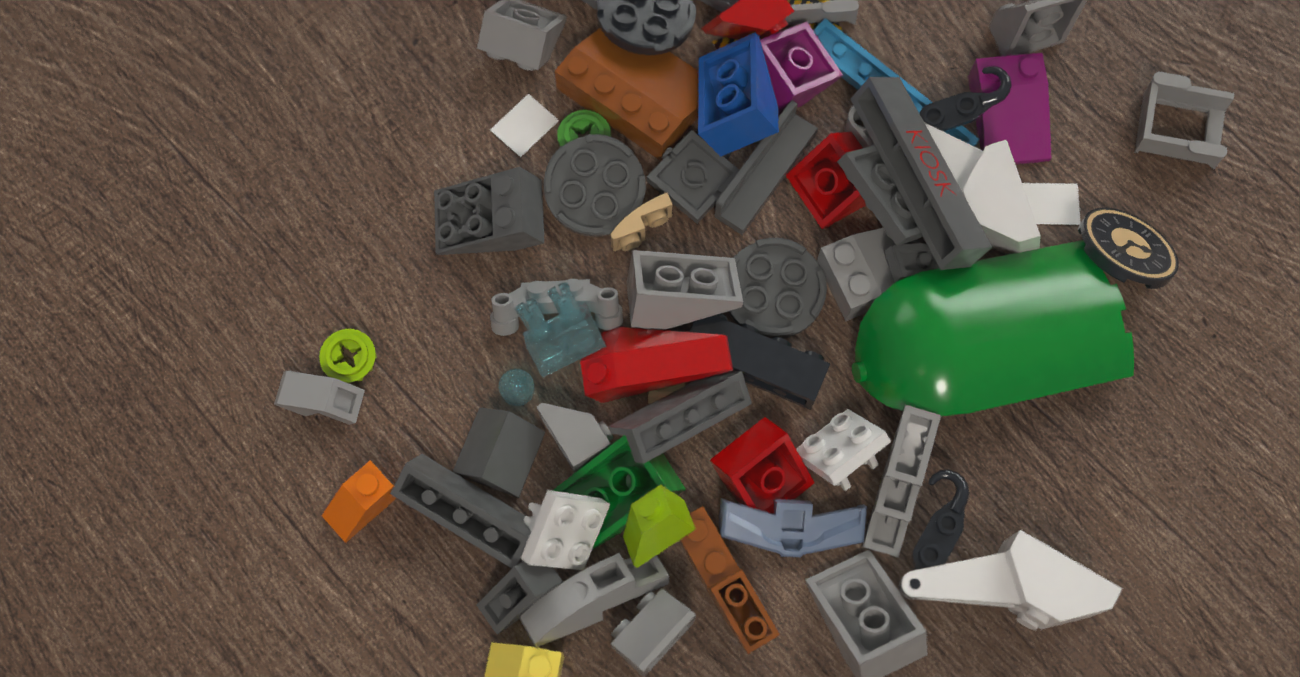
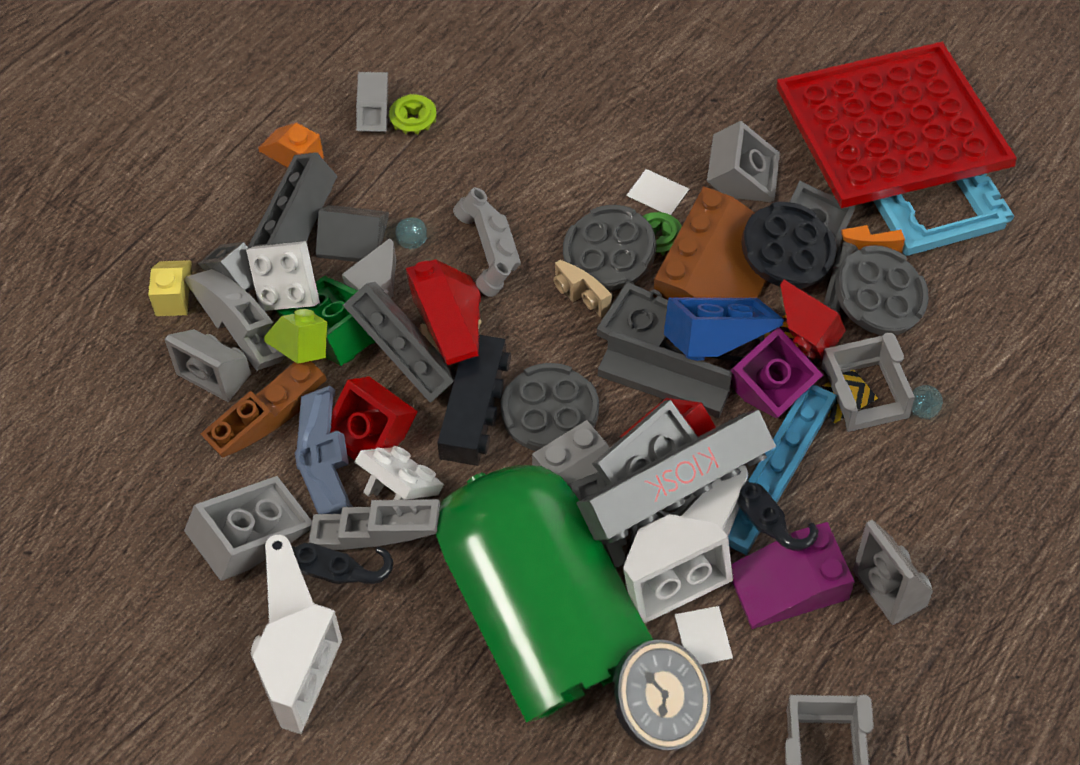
camera: 80 degrees right, 15 degrees down
(490, 214) = (562, 180): dark grey slope -> none
(562, 338) = (453, 245): clear light blue brick -> none
(680, 288) = (520, 316): light grey slope -> none

